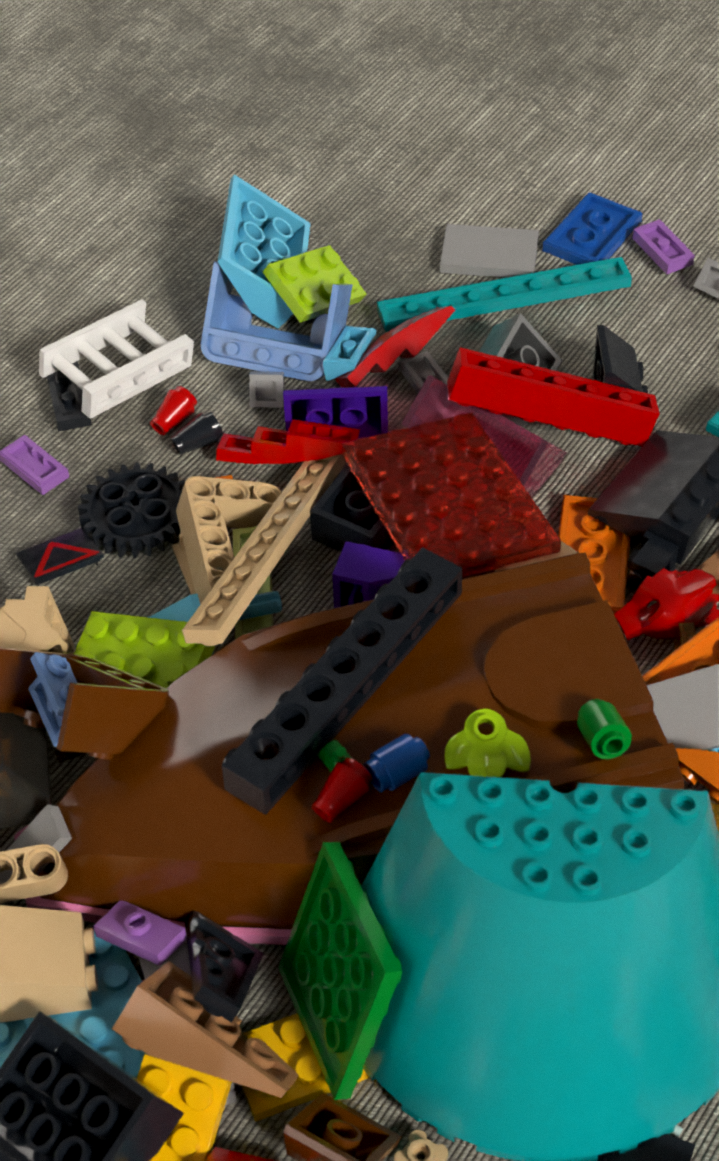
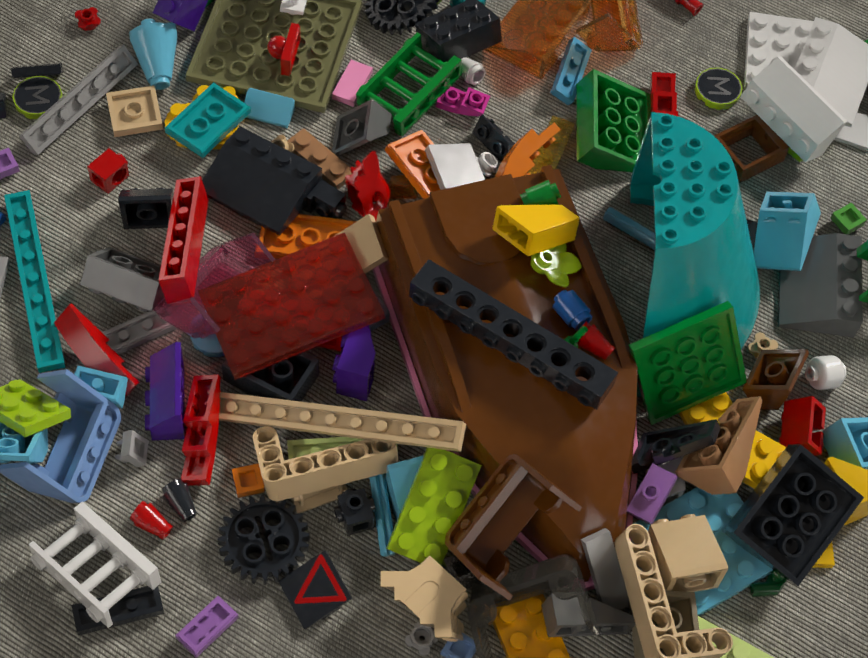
camera: 100 degrees left, 10 degrees up
(51, 690) = (504, 538): medium blue bracket -> none
(158, 588) = (355, 511): none -> black brick
(535, 711) = (535, 226): none -> yellow slope
(673, 345) = (108, 170): none -> red brick

